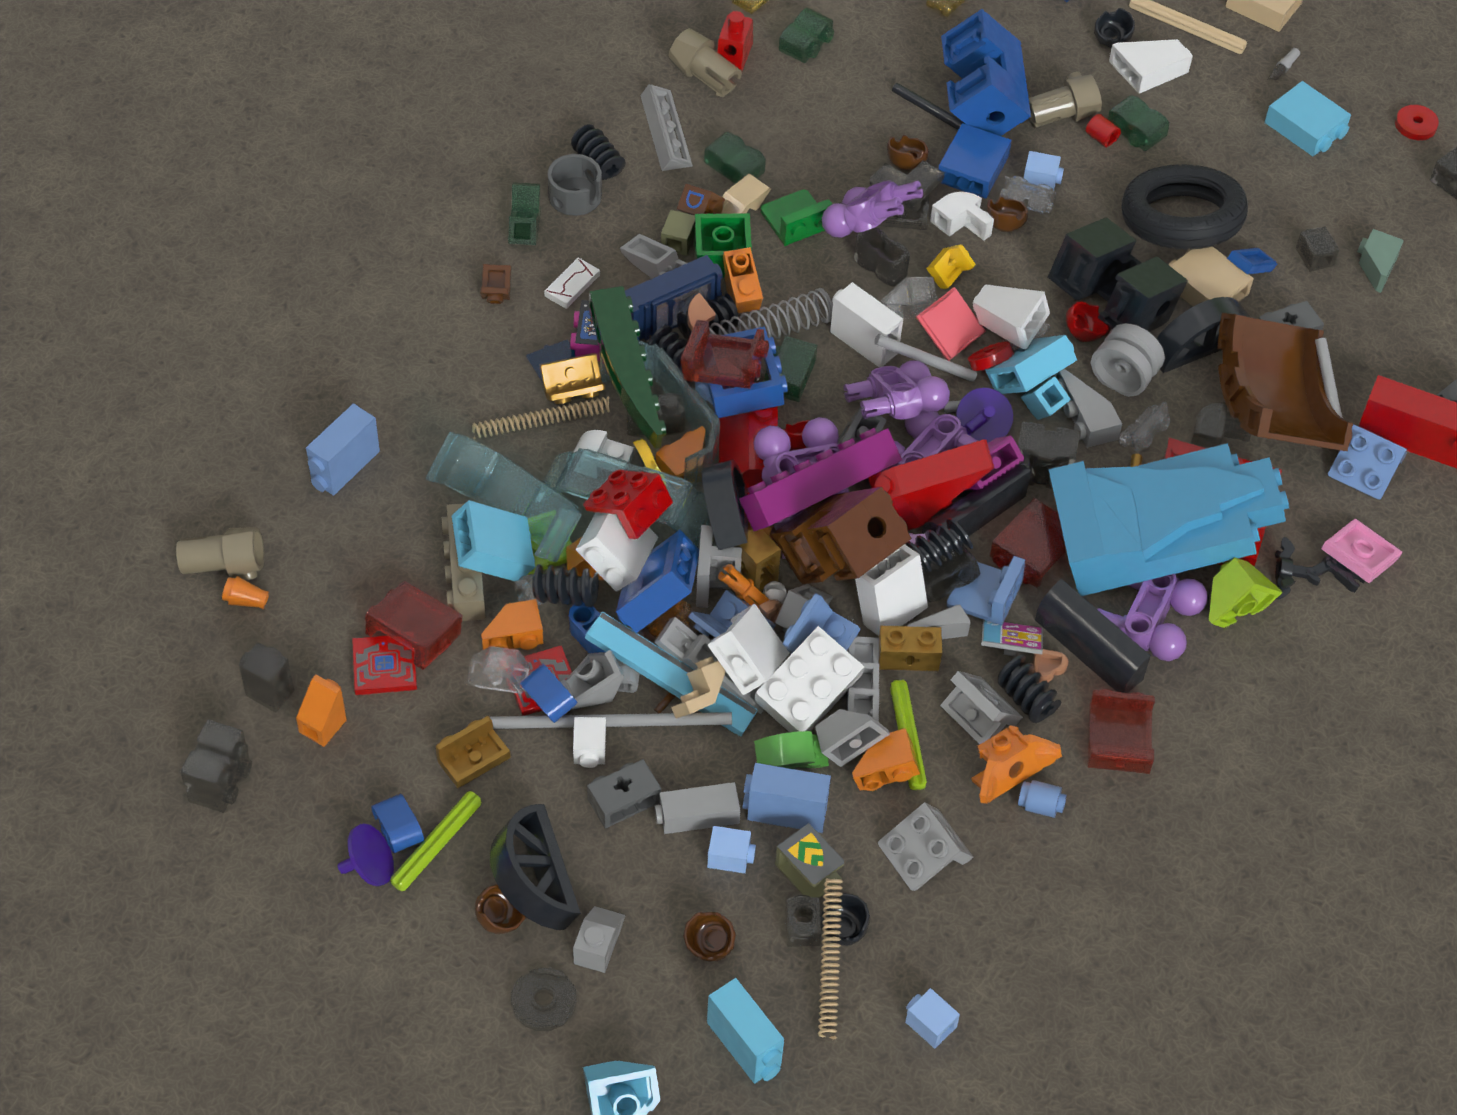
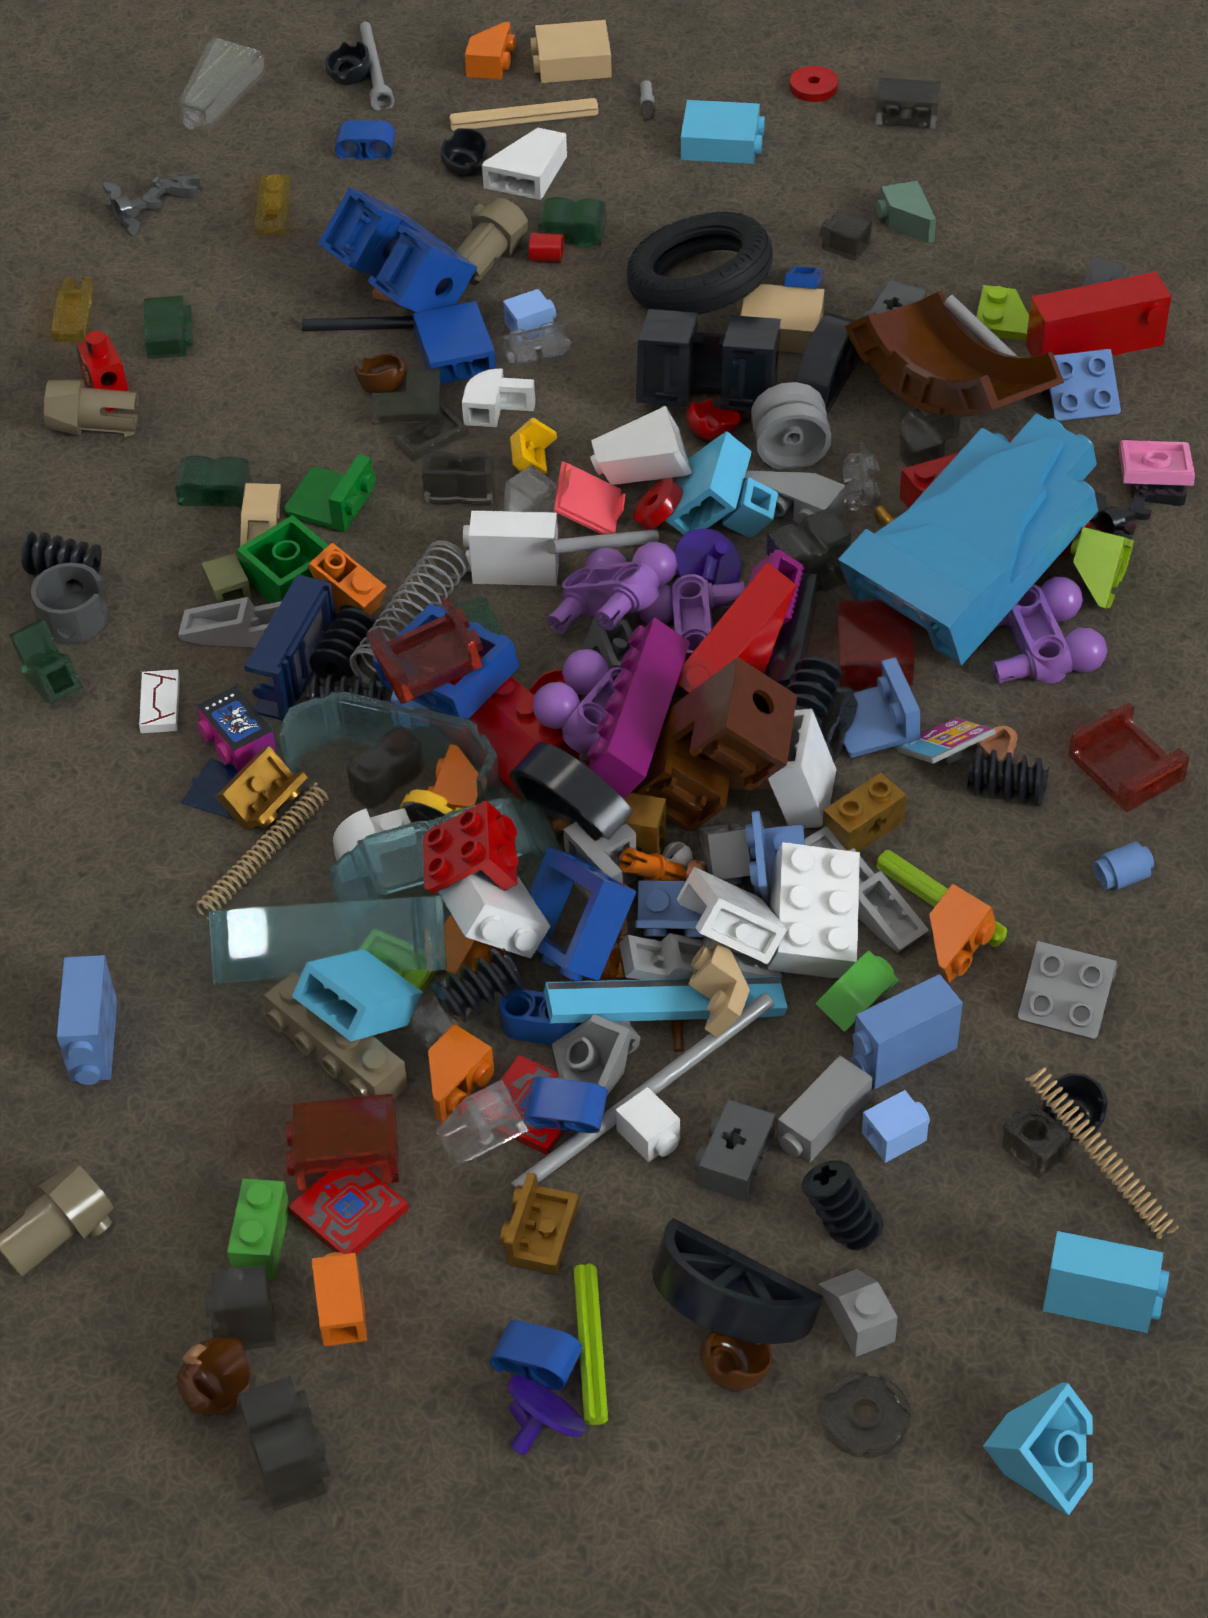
camera: 35 degrees left, 5 degrees down
(221, 702) = (214, 1376): none -> reddish brown hair
(242, 593) = (116, 1246): orange cone -> none
(321, 639) = (259, 1225): none -> bright green brick
(496, 283) = (79, 750): reddish brown bracket -> none
(626, 358) = (322, 724): dark green slope -> none
(645, 870) = (843, 1204): none -> black piece
(663, 128) = (103, 499): light grey slope -> none
(699, 310) = (340, 637): nougat tile -> none
(700, 201) = (223, 537): reddish brown brick -> none
(714, 929) = (967, 1213): reddish brown hair -> none
(808, 861) = (986, 1079): piece -> none
(848, 735) = (903, 928): light grey slope -> none
(868, 207) = (408, 437): medium lavender piece -> none
(952, 621) = (875, 760): light grey slope -> none
(978, 707) = (984, 827): light grey bracket -> none
(1007, 214) = (538, 366): reddish brown hair -> none
(1012, 760) = (1067, 848): orange piece -> none
(1092, 638) = (1018, 689): black brick -> none
(1363, 372) = (1003, 312): none -> lime wing

